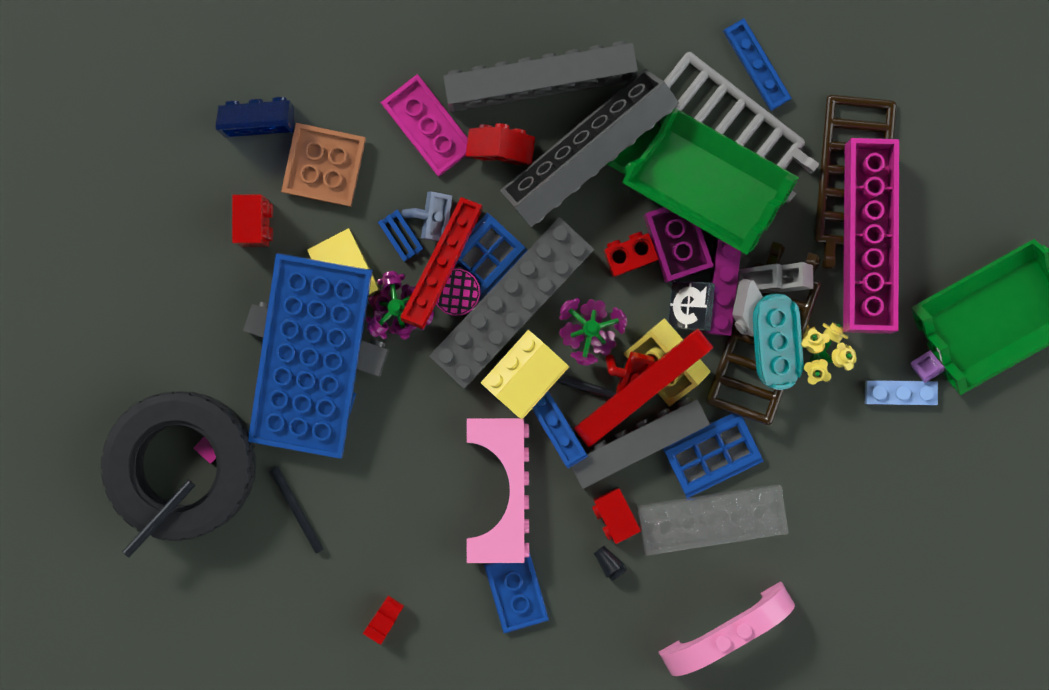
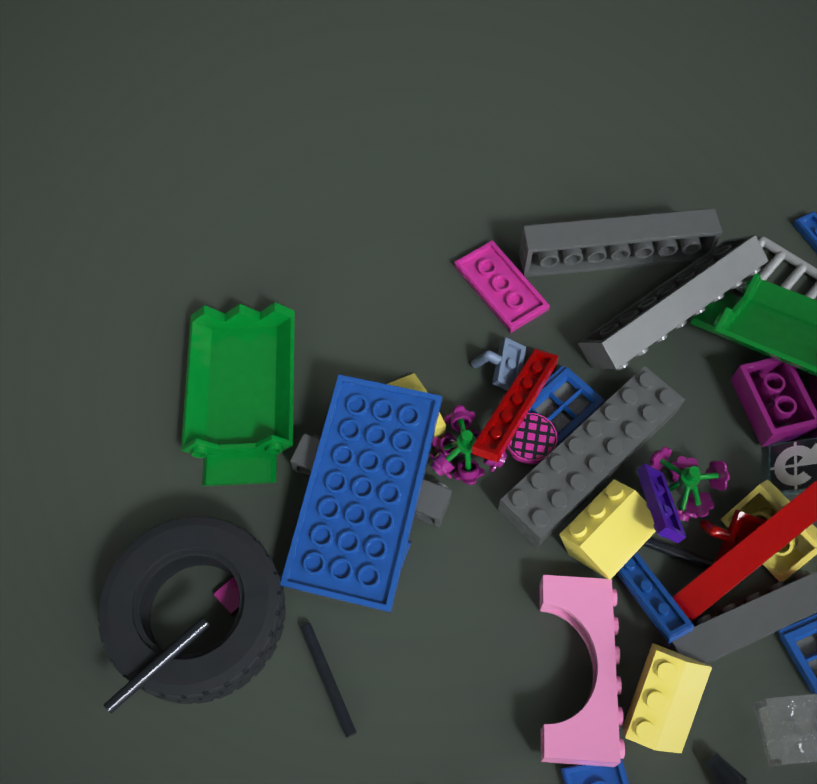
camera: 10 degrees right, 25 degrees down
(186, 258) = (239, 392): none -> green panel
(251, 221) = (314, 352): red brick -> none
(255, 117) = (328, 267): clear blue slope -> none
(323, 165) = (393, 312): nougat plate -> none
(389, 218) = (459, 366): blue tile -> none
(500, 144) = (580, 297): red brick -> none
(564, 353) = (660, 503): none -> dark purple plate
(564, 512) = (665, 700): none -> light yellow slope
(616, 515) = (731, 713): red brick -> none
(632, 259) = (724, 418): red brick -> none

